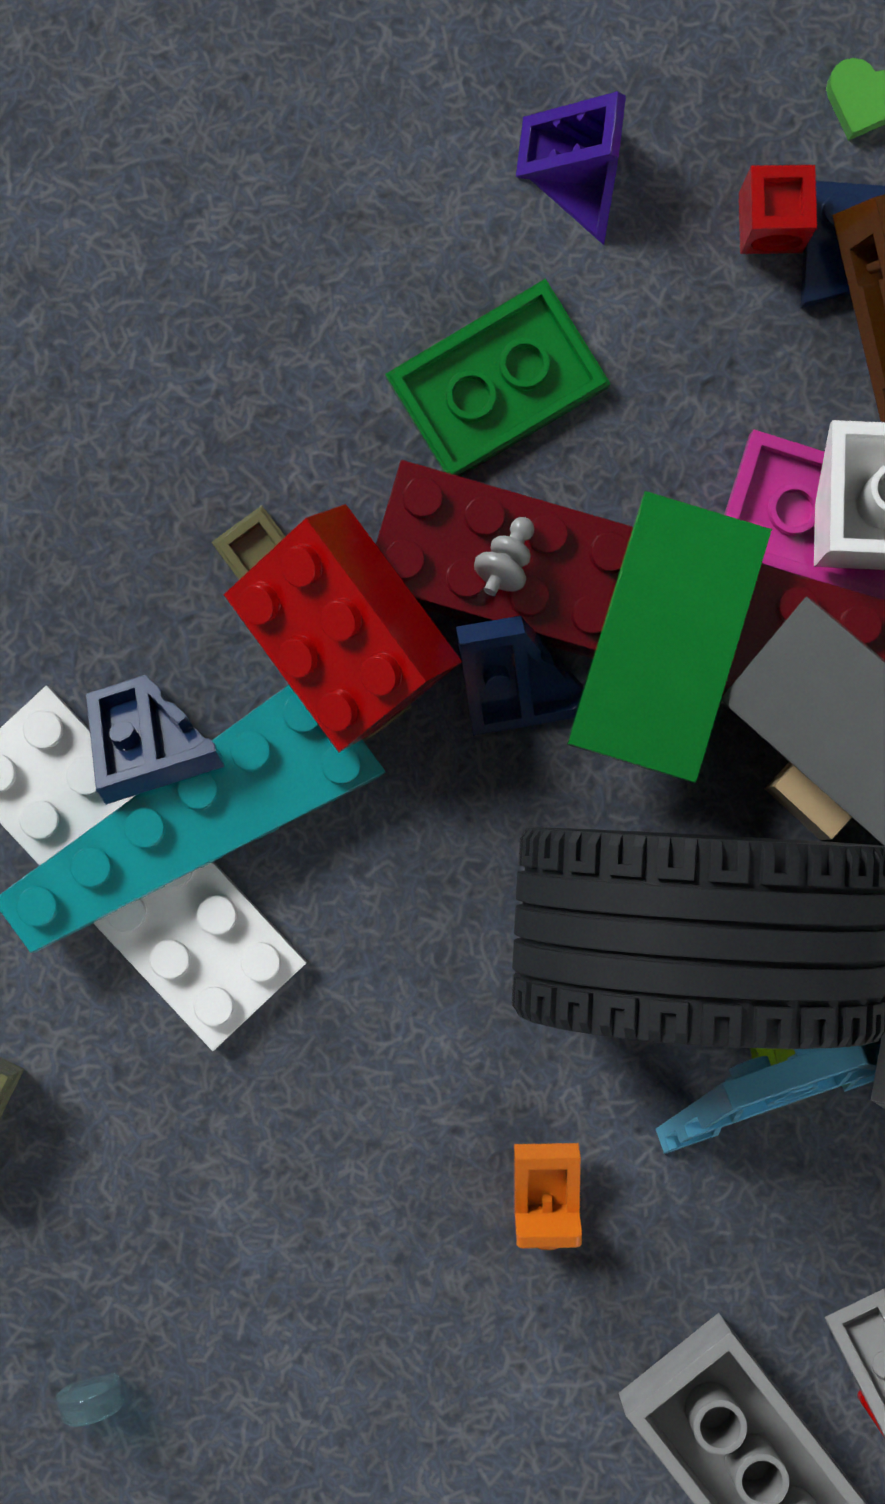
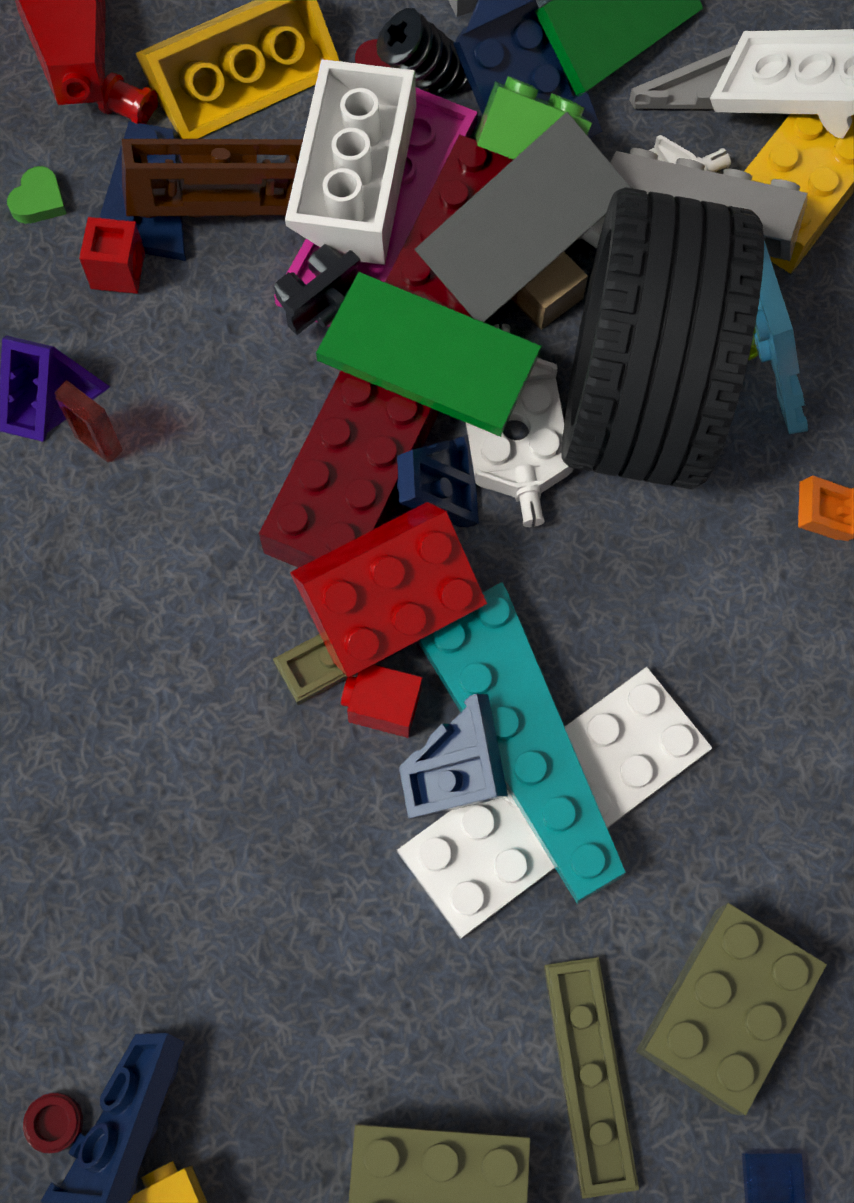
camera: 85 degrees left, 15 degrees down
(218, 646) = (382, 699): none -> red brick
(497, 380) = (202, 473): green tile -> none
(503, 565) = (356, 457): light grey hair -> none
(527, 222) = (88, 421): none -> clear red tile
(559, 789) = (530, 464): none -> white plate
(733, 468) = (322, 295): none -> black hips

